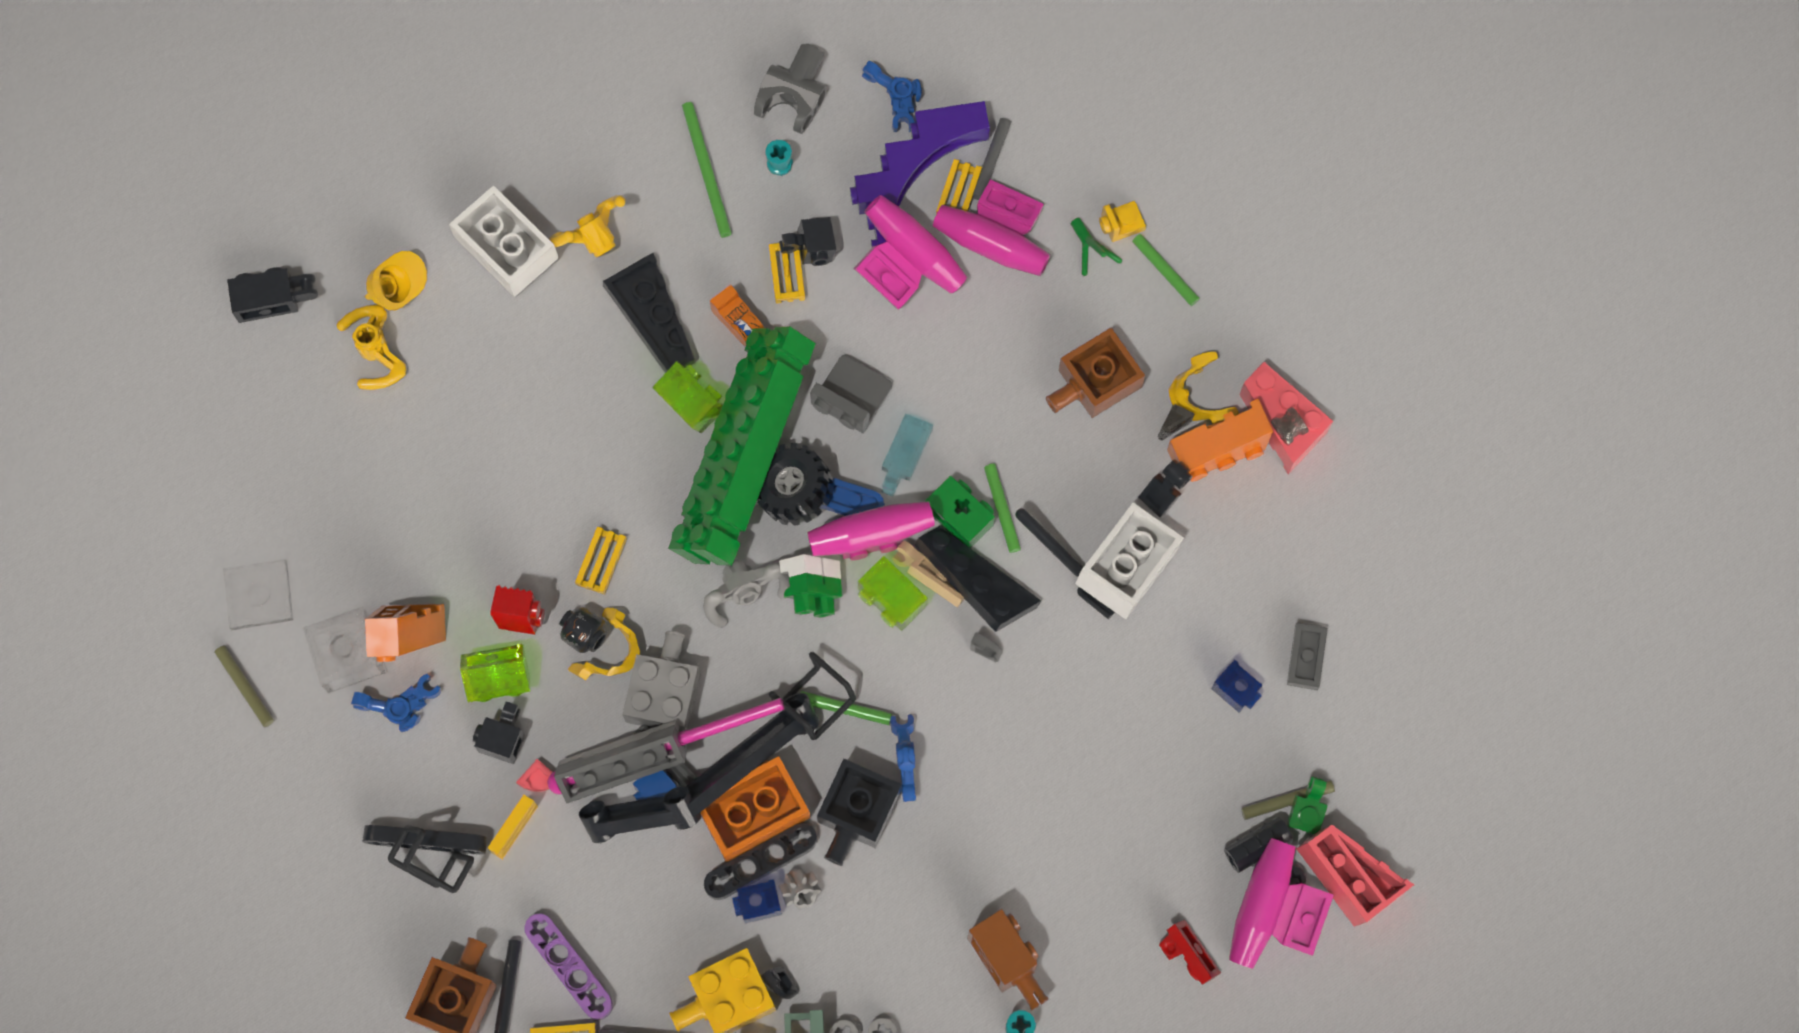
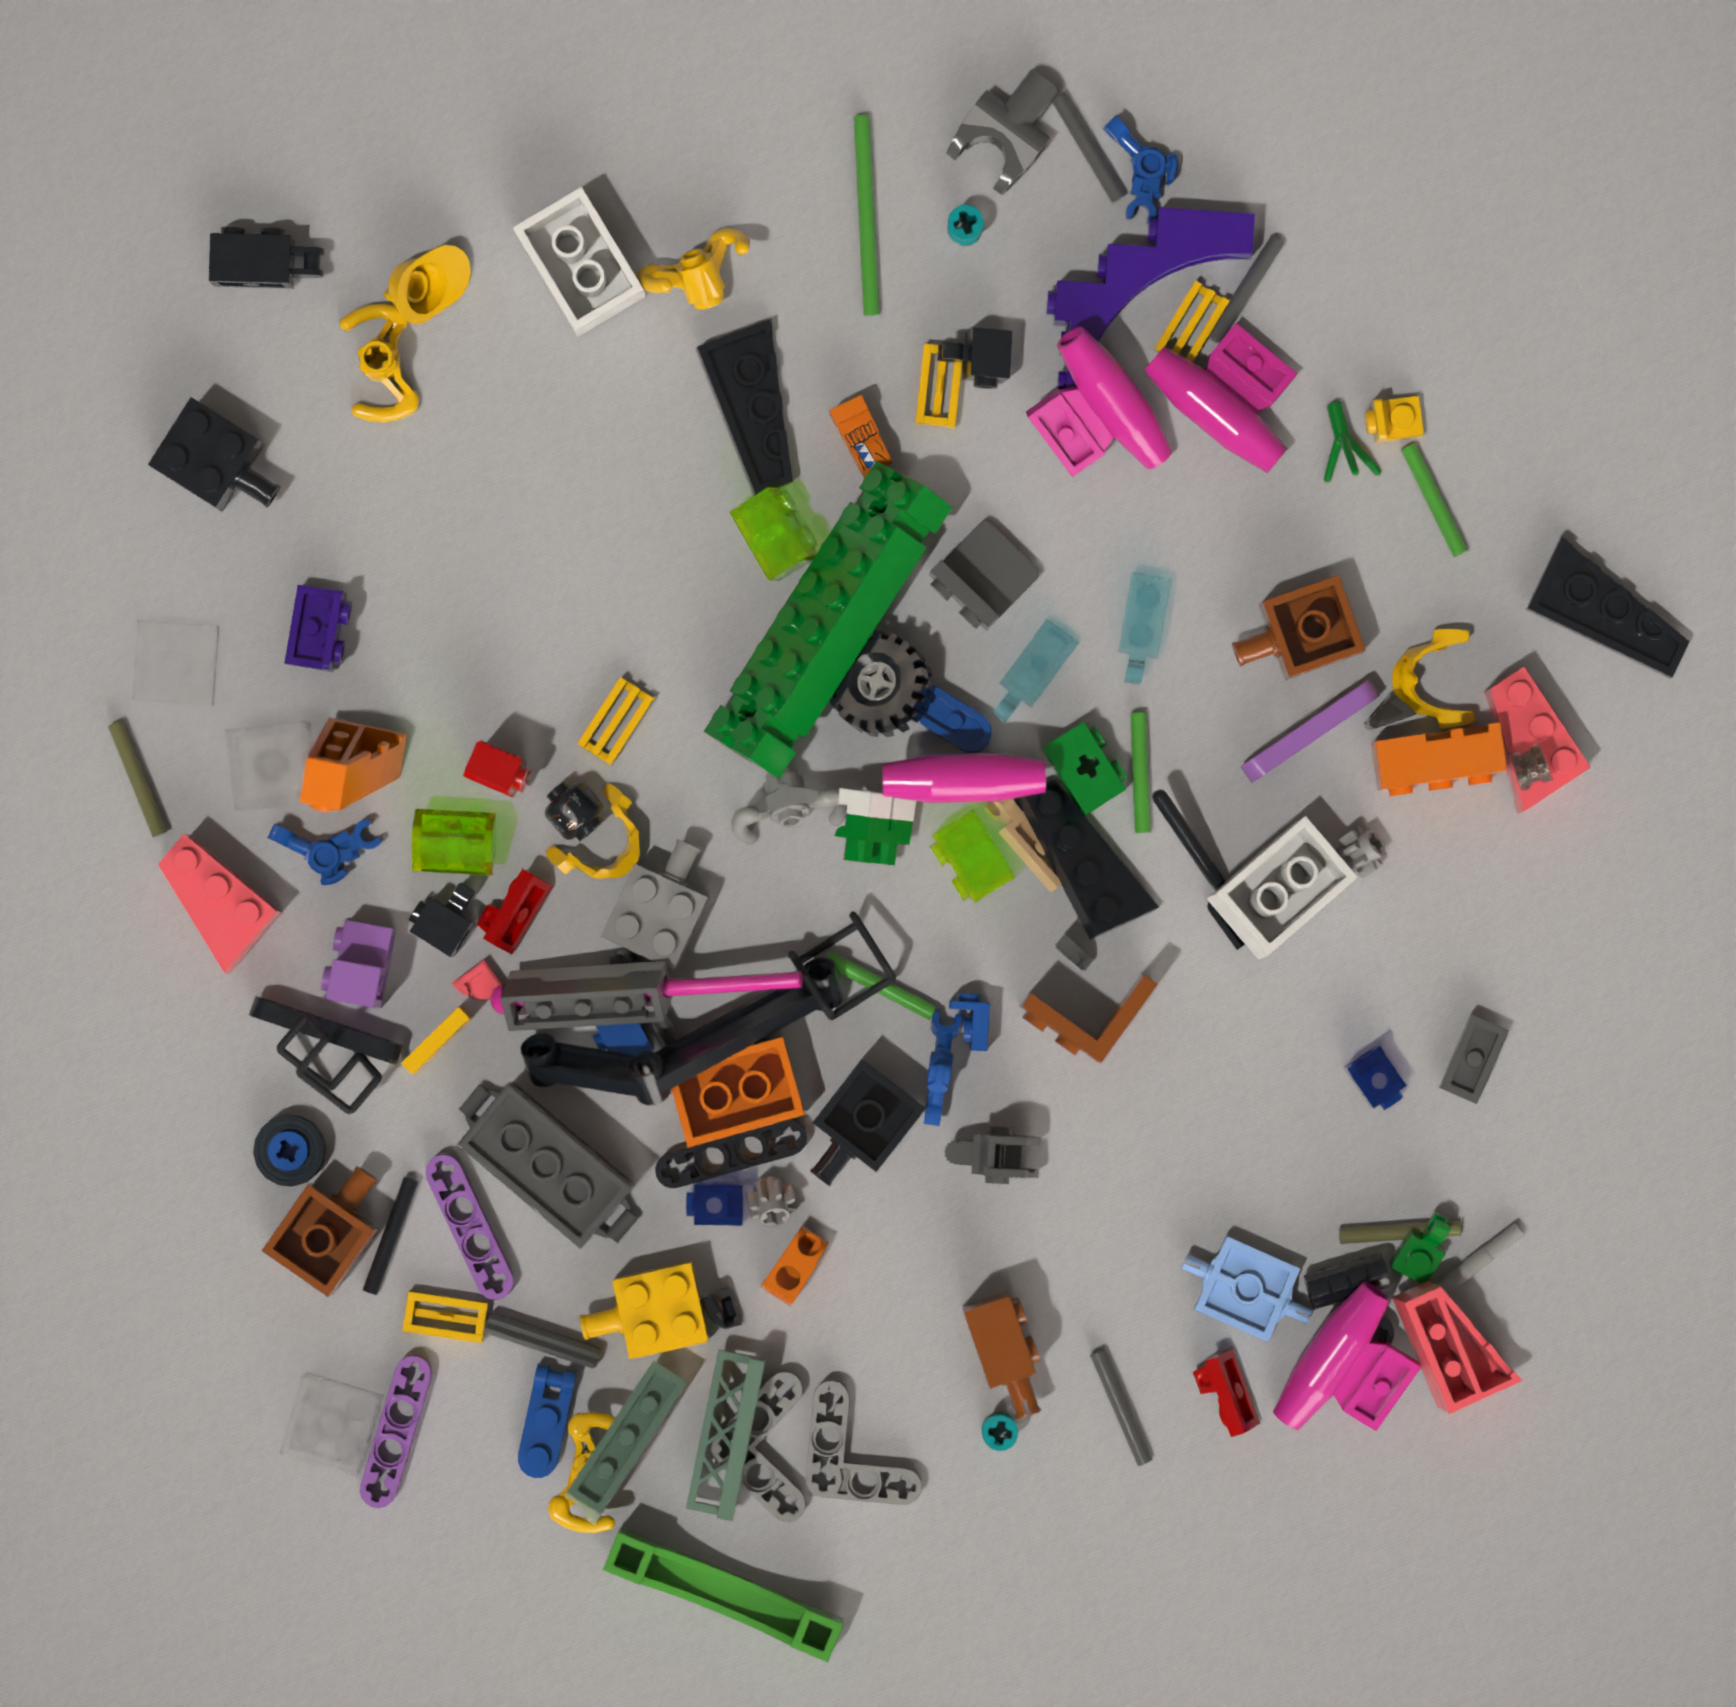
camera: 15 degrees right, 15 degrees up
(257, 438) = (212, 458): none -> black brick
(324, 760) = (218, 901): none -> coral wedge
(360, 543) = (317, 628): none -> dark purple bracket
(421, 947) = (302, 1143): none -> black wheel
(441, 782) = (361, 965): none -> medium lavender brick
(556, 711) = (509, 923): none -> red hinge
(618, 899) = (546, 1164): none -> dark grey container
(829, 936) = (795, 1265): none -> orange leg
(855, 90) = (1088, 147): none -> dark grey bar
(926, 719) = (976, 1027): none -> blue bracket
(964, 810) = (993, 1154): none -> dark grey hinge
(976, 400) = (1143, 622): none -> clear light blue plate
(999, 704) = (1074, 1038): none -> dark orange bracket
(1110, 986) = (1121, 1407): none -> dark grey bar
(1119, 448) = (1310, 731): none -> medium lavender beam
(1161, 491) = (1354, 801): black plate -> none
(1182, 521) = (1361, 850): none -> light grey gear
(1183, 869) = (1247, 1288): none -> light blue plate
(1300, 315) = (1593, 605): none -> black wing
(1357, 802) = (1480, 1258): none -> light grey piece

